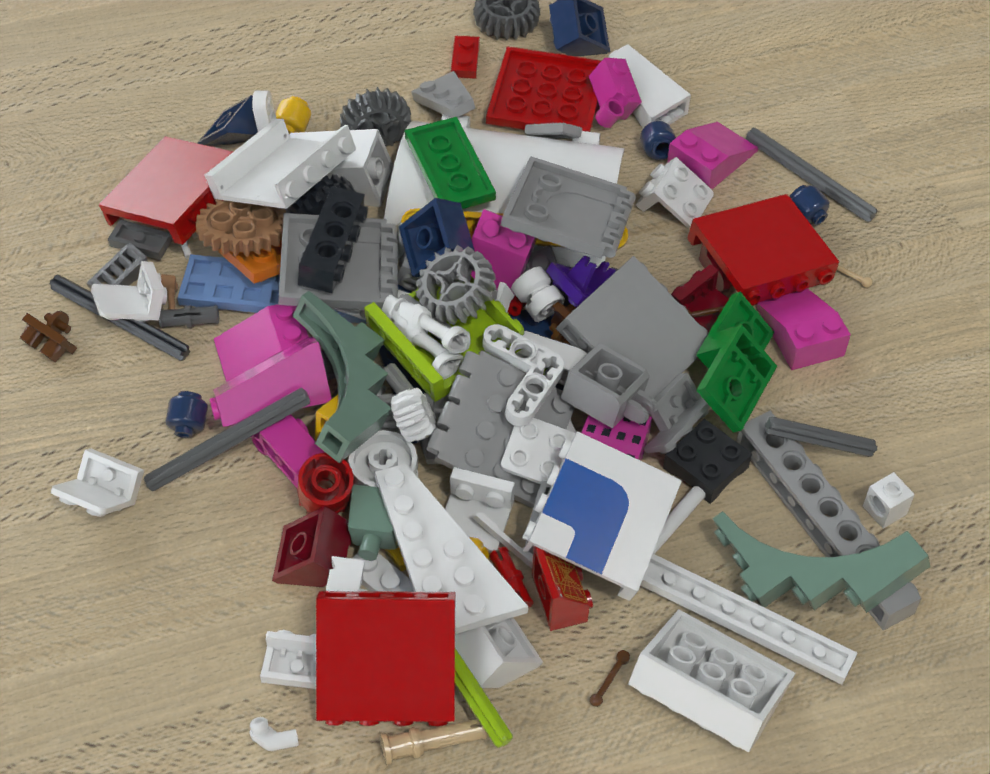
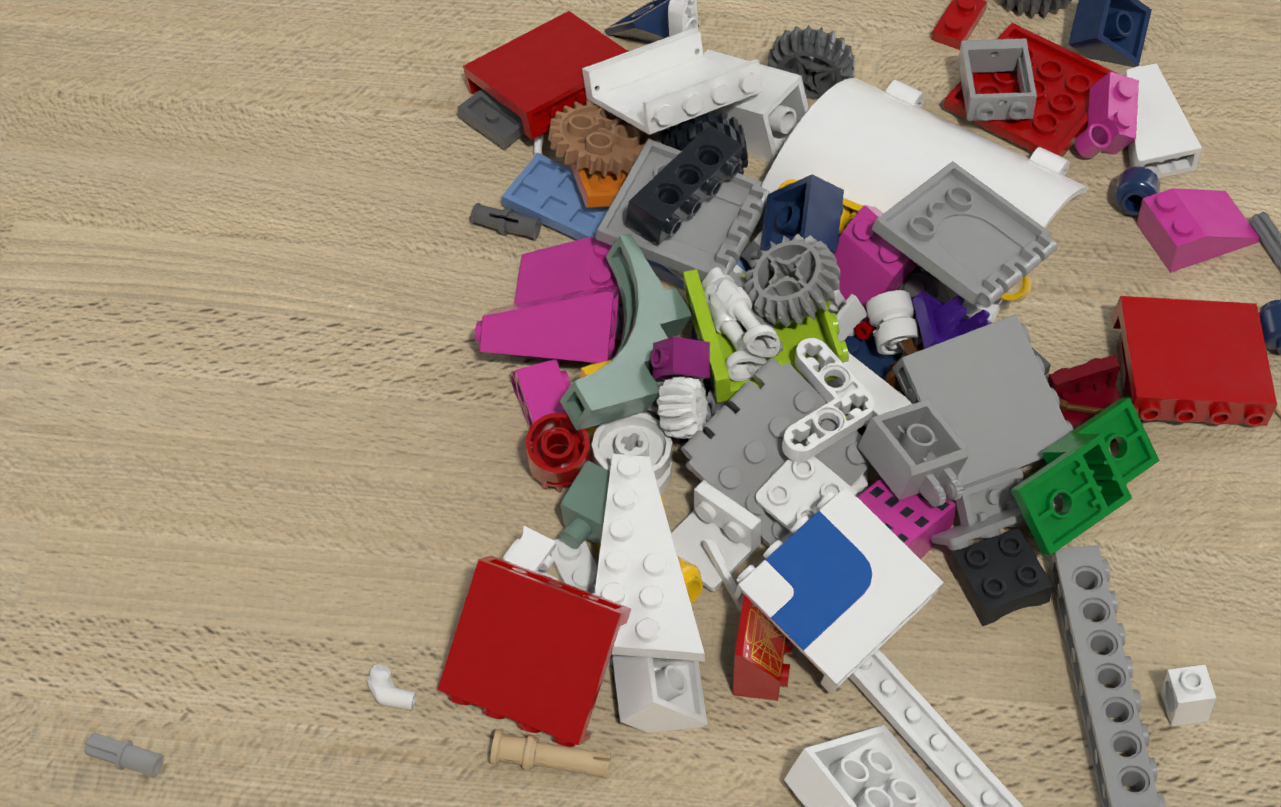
camera: 25 degrees right, 0 degrees up
(56, 343) = (362, 184): reddish brown hips -> none
(101, 484) = (335, 370): white bracket -> none
(128, 258) = (469, 136): flat silver slope -> none
(132, 302) = (451, 184): white bracket -> none
(140, 329) = (434, 198): black axle -> none
(172, 286) = (501, 178): medium nougat hand -> none
(186, 414) = (453, 326): dark blue head -> none
(227, 439) = (480, 366): dark grey axle -> none
(290, 660) = (435, 617): white bracket -> none
(295, 114) = (722, 30): yellow head -> none
(308, 548) = (517, 503): dark red slope -> none
(396, 376) = (681, 359): none -> magenta brick
(445, 96) = (908, 59): light grey wing -> none
(450, 163) = (859, 141): green plate -> none
(480, 704) = (613, 731): lime axle -> none
(509, 572) = (714, 624): red pin -> none
(523, 69) = (1010, 56): none -> light grey window
(553, 130) = (1012, 140): light grey tile -> none
(622, 659) = (744, 784): reddish brown hinge -> none
(677, 191) = (1128, 259): white bracket -> none
(679, 514) = (930, 627): white piece -> none
(805, 328) = (1198, 468): dark pink slope -> none
(820, 436) = (1143, 596): dark grey axle -> none
(866, 575) = (1099, 763): sand green arch -> none

